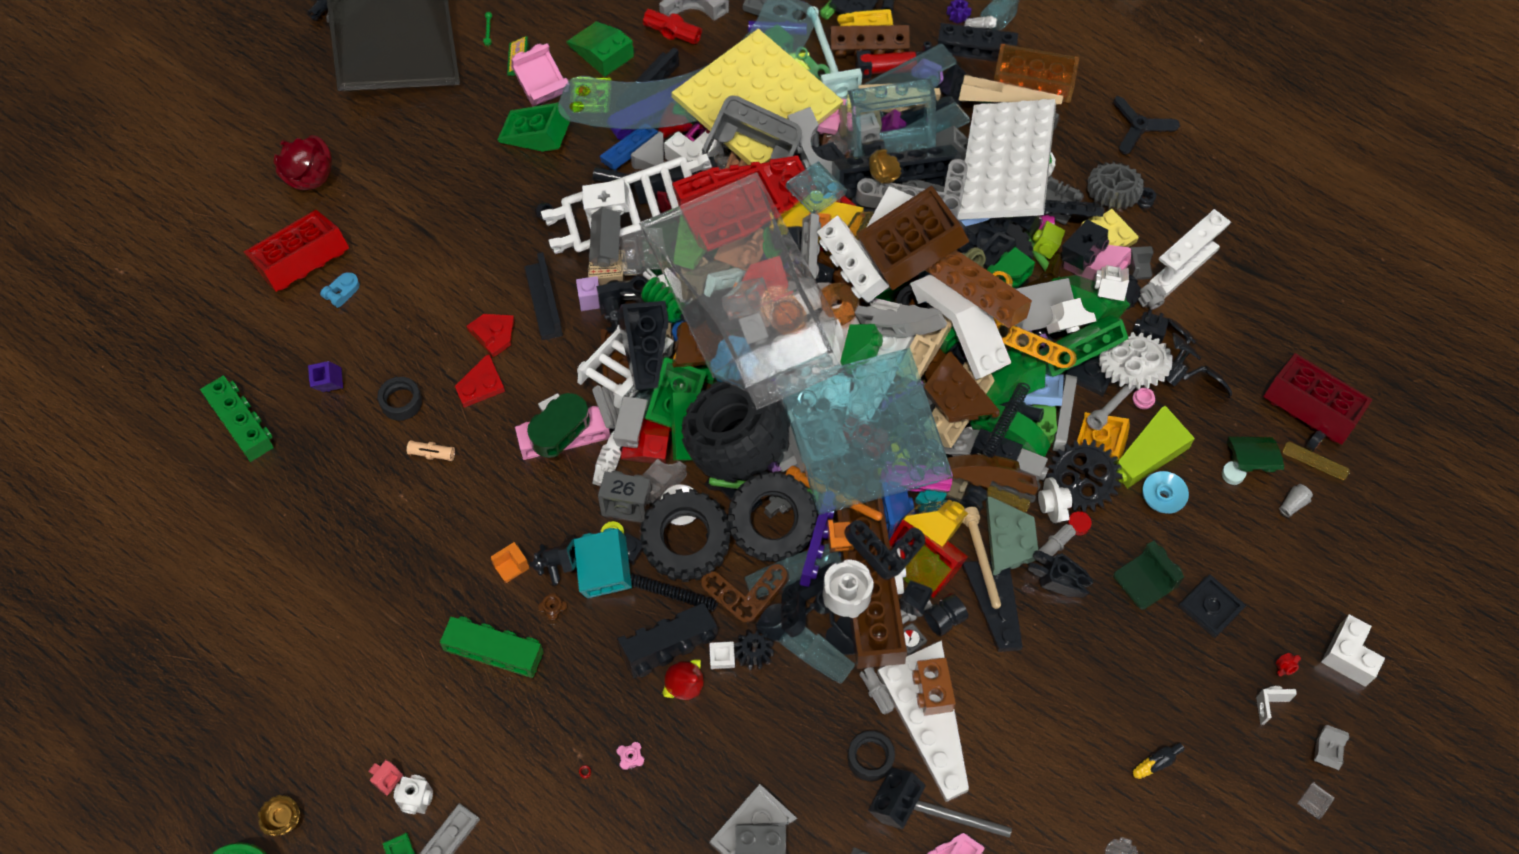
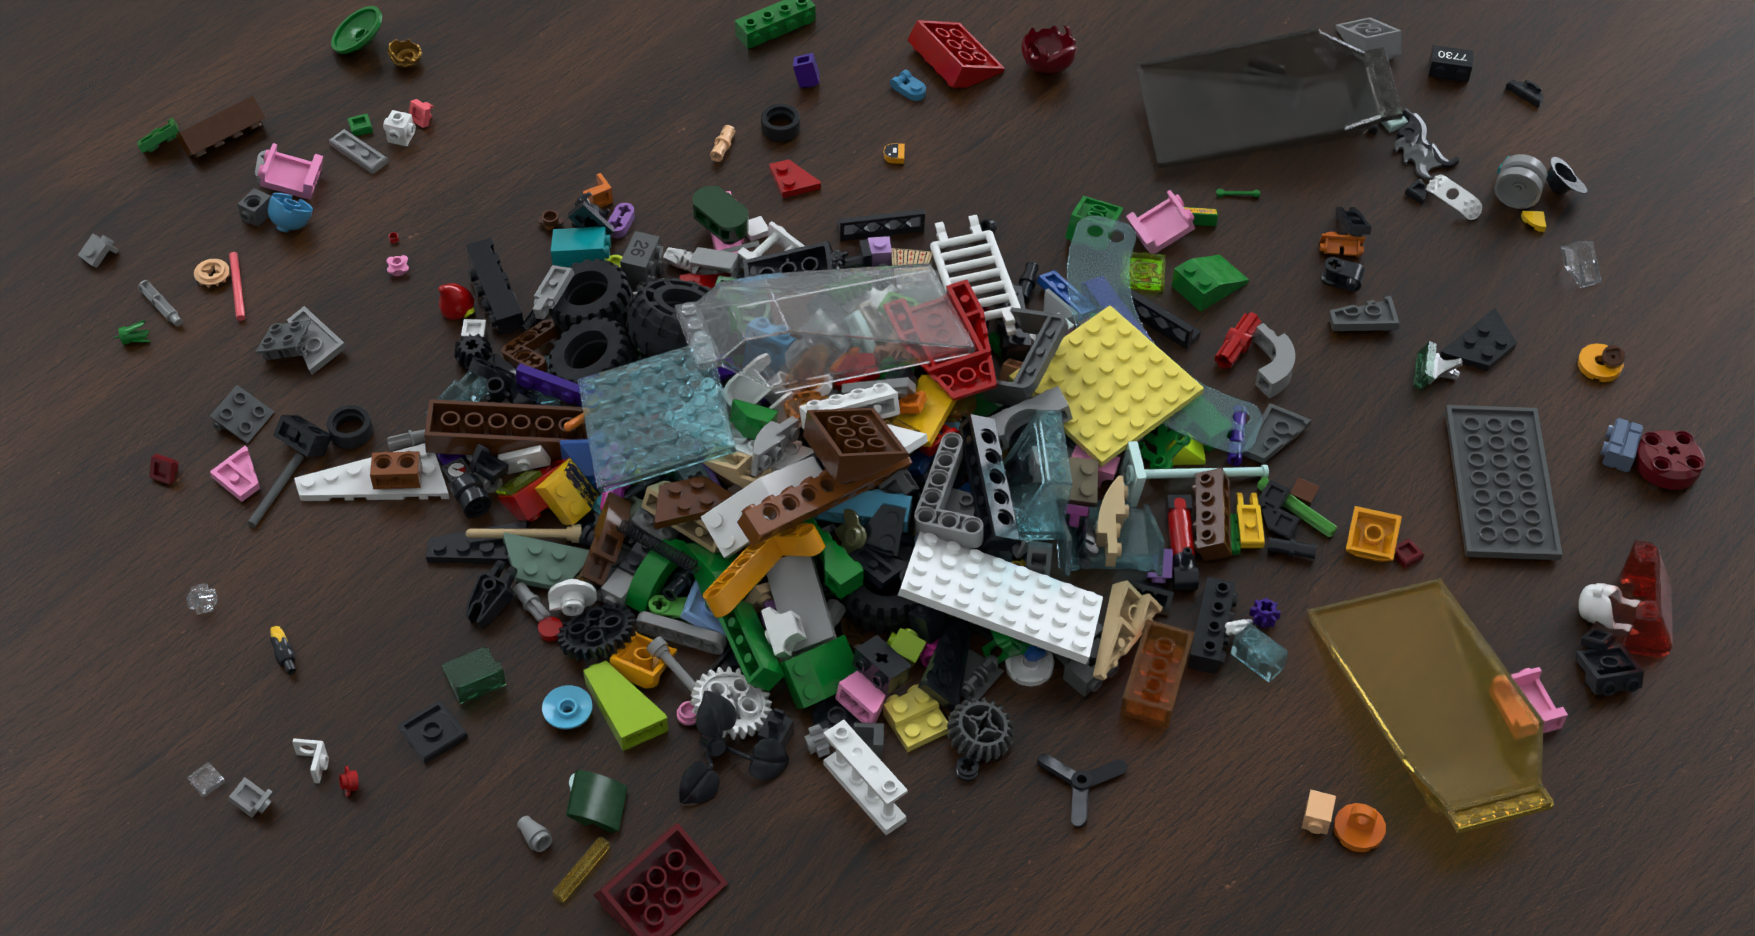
camera: 95 degrees right, 10 degrees down
(441, 295) = (894, 153): none -> tile
(492, 646) = (516, 175): green brick -> none
(493, 332) = (846, 186): red plate -> none
(548, 536) = (624, 221): none -> medium lavender beam
(604, 237) = (928, 249): dark grey brick -> none
(609, 195) = (973, 251): white brick -> none
(692, 561) = (551, 290): none -> light grey hinge
(816, 188) = (950, 394): clear light blue plate -> none
(837, 538) = (552, 394): orange panel -> none
(847, 588) = (492, 388): white brick -> none
(884, 167) = (967, 447): pearl gold hair -> none
(890, 556) = (521, 430): black beam -> none
(1112, 282) = (821, 669): white window -> none
(1315, 440) = (603, 869): black tile -> none
(1349, 656) = (344, 837): white brick -> none

